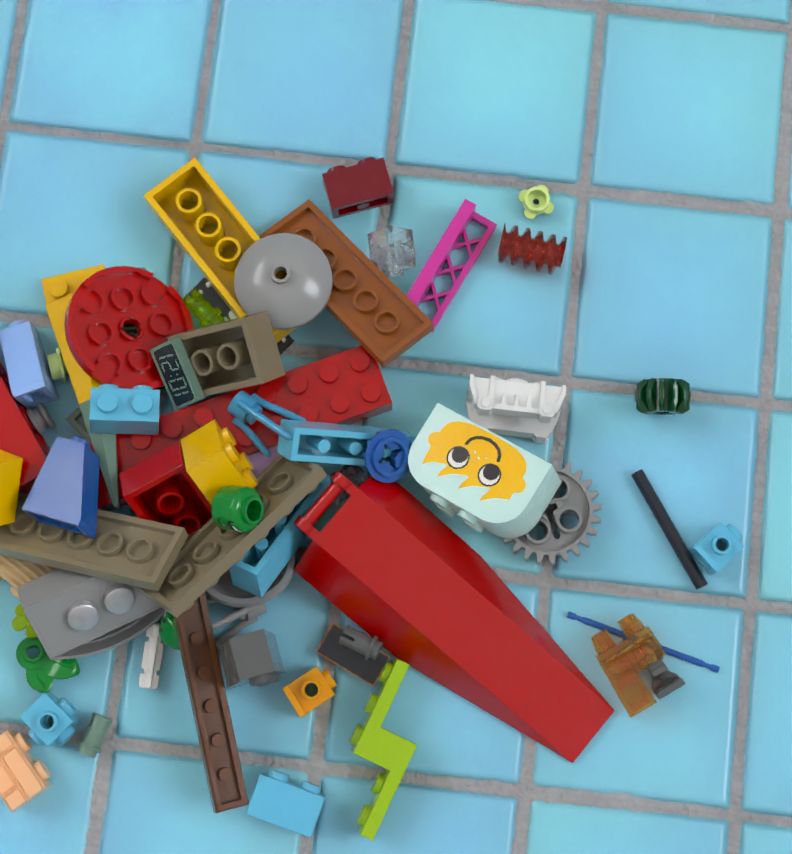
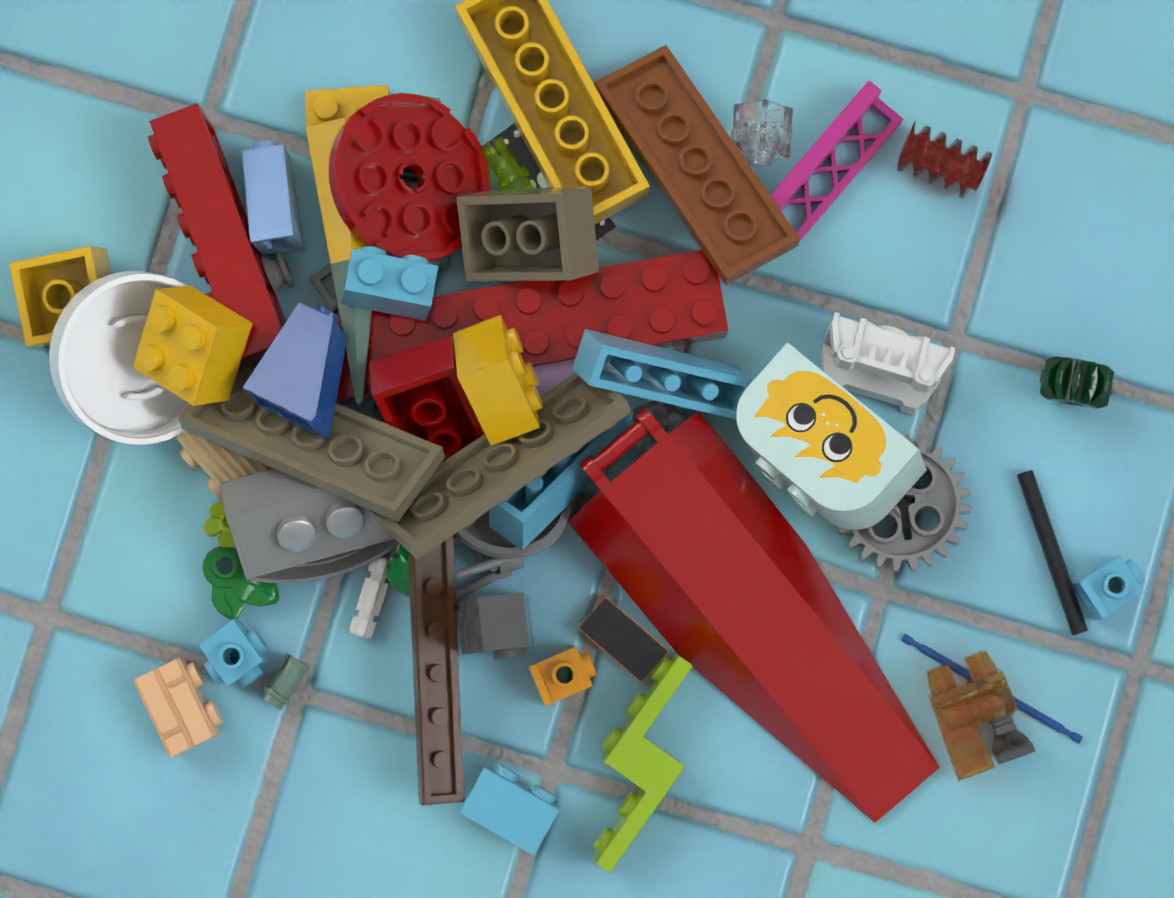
camera: 15 degrees right, 5 degrees up
(57, 366) = (309, 208): yellowish green plate -> none
(177, 373) = (461, 246): tile -> none
(237, 508) = (513, 435): green head -> none
(248, 409) = (543, 308): dark azure plant -> none
(289, 300) = (622, 177): light grey dish -> none
(358, 187) = (732, 39): dark red brick -> none
(363, 644) = (639, 628): dark grey pin -> none
(398, 465) = (723, 415): blue gear -> none
(536, 193) = (968, 89): yellowish green plate -> none

